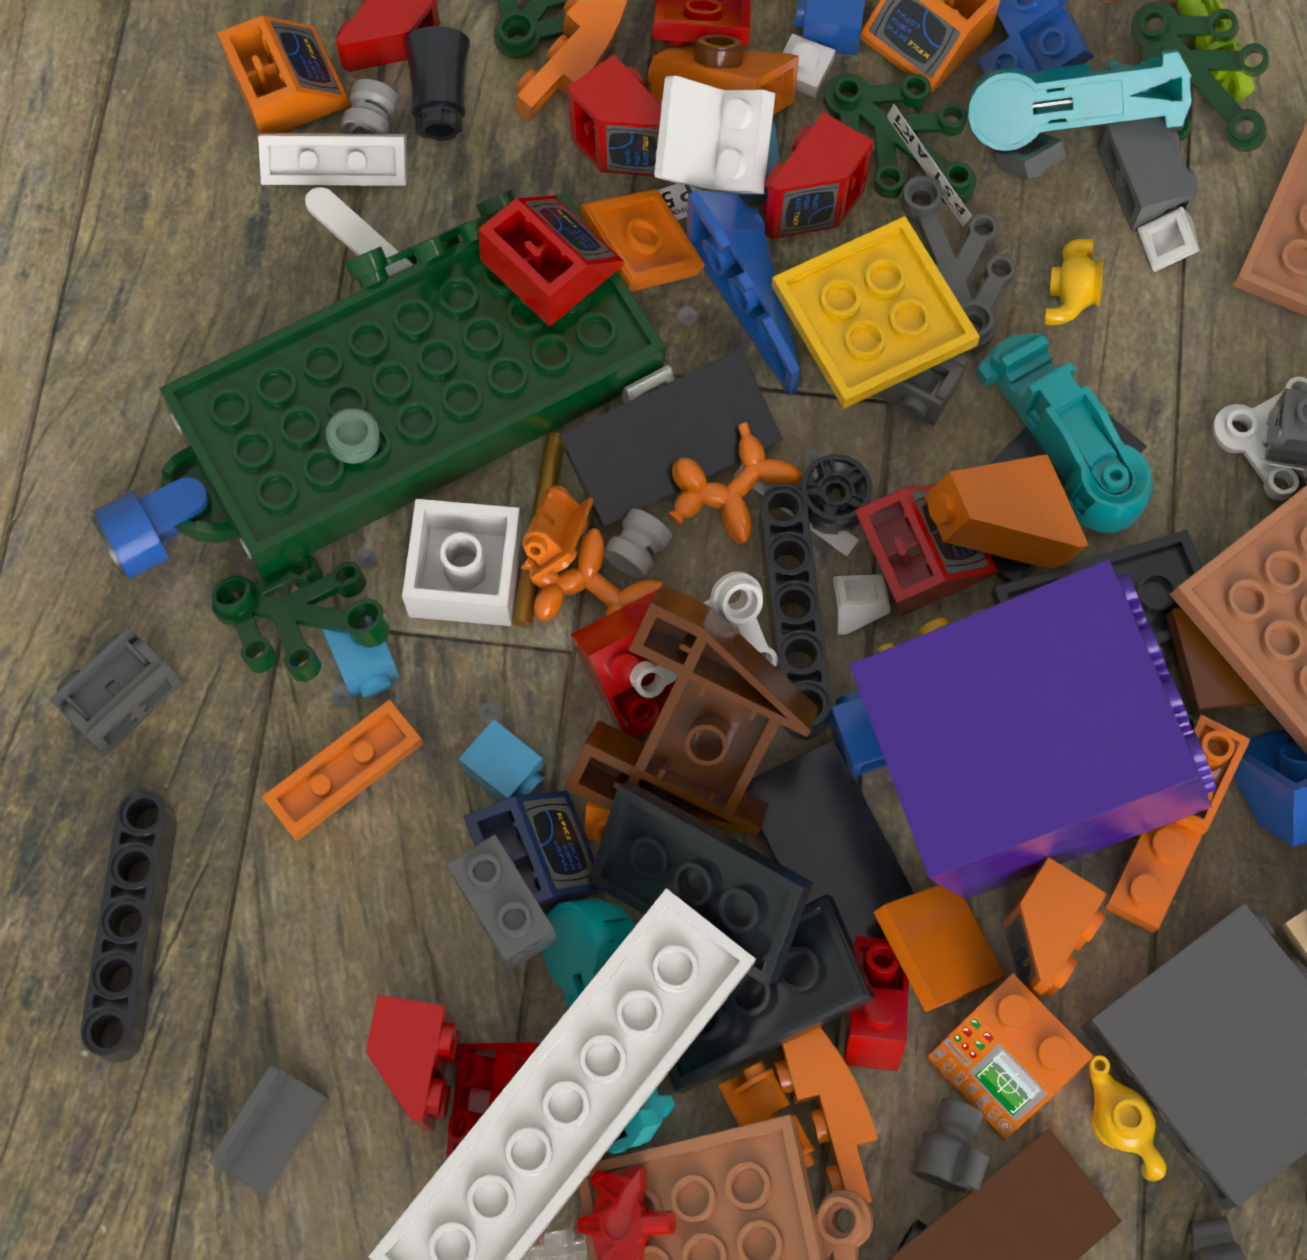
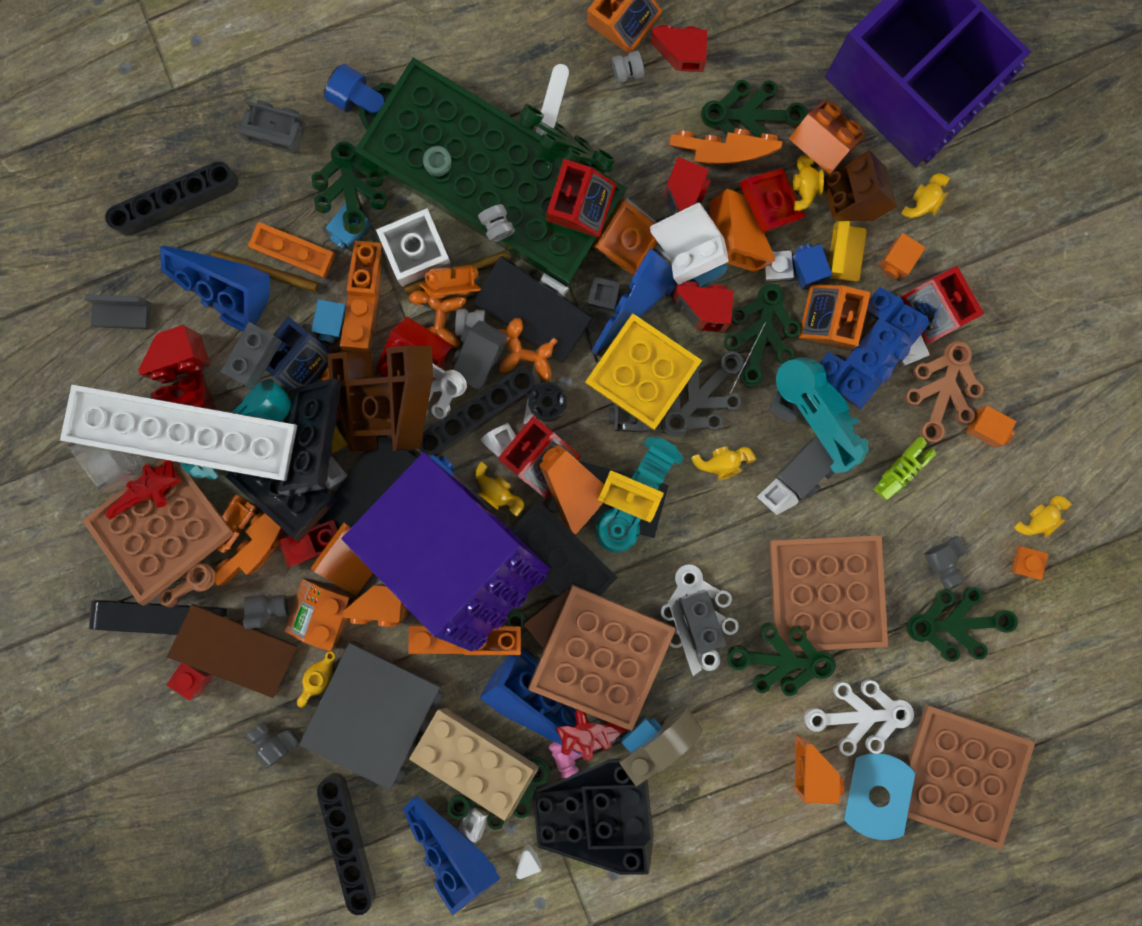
camera: 65 degrees right, 15 degrees up
(333, 159) = (592, 64): white plate -> none
(338, 914) = (226, 285): none -> blue wedge
(349, 838) = (276, 275): none -> pearl gold bar
(437, 77) = (662, 90): black plant -> none
(490, 691) = (363, 296): none -> orange slope
(523, 390) = (496, 223): none -> light grey wheel
(699, 543) = (479, 353): none -> dark grey brick
(706, 323) = (603, 294): none -> dark grey plate
(718, 51) = (746, 220): reddish brown tile -> none
(1076, 415) = (630, 496): none -> yellow hinge
(1202, 61) = (882, 463): dark green plant -> none

